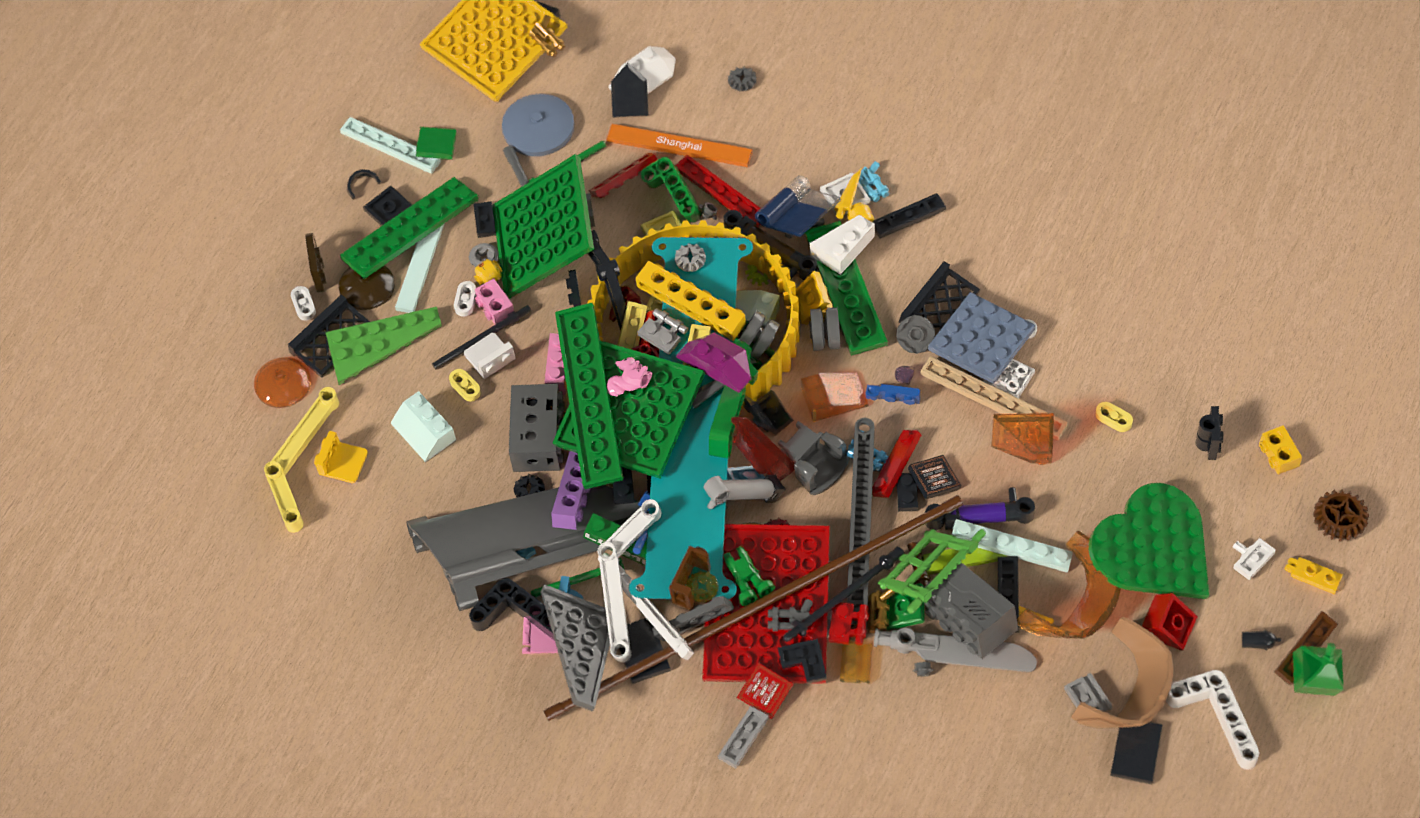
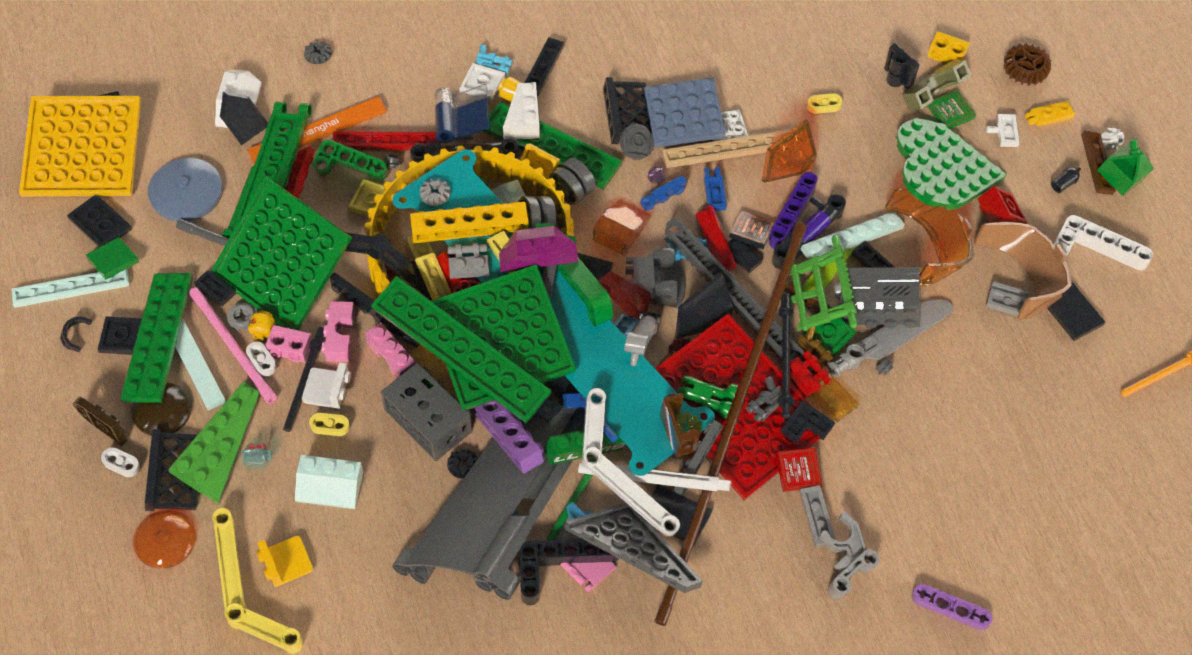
camera: 50 degrees left, 0 degrees up
(393, 369) = (256, 456): none -> clear light blue head
(446, 324) = (264, 389): none -> bright pink piece
(455, 107) = (99, 221): none -> black tile
(525, 328) = (339, 316): none -> bright pink arch
(542, 33) = (126, 115): pearl gold piece -> none
(630, 142) = (277, 149): none -> green hinge
(632, 378) = (485, 310): bright pink animal -> none
(730, 791) = (854, 559): none -> light grey piece
(817, 507) = (704, 308): none -> black slope
(847, 196) = (489, 79): yellow bar -> none
(940, 421) = (714, 189): none -> blue hinge
(990, 479) = (787, 219): none -> dark purple beam
(1216, 469) = (948, 75): none -> olive arch
(1224, 505) = (951, 110): none -> green tile
(1343, 637) = (1112, 138): none -> white gear

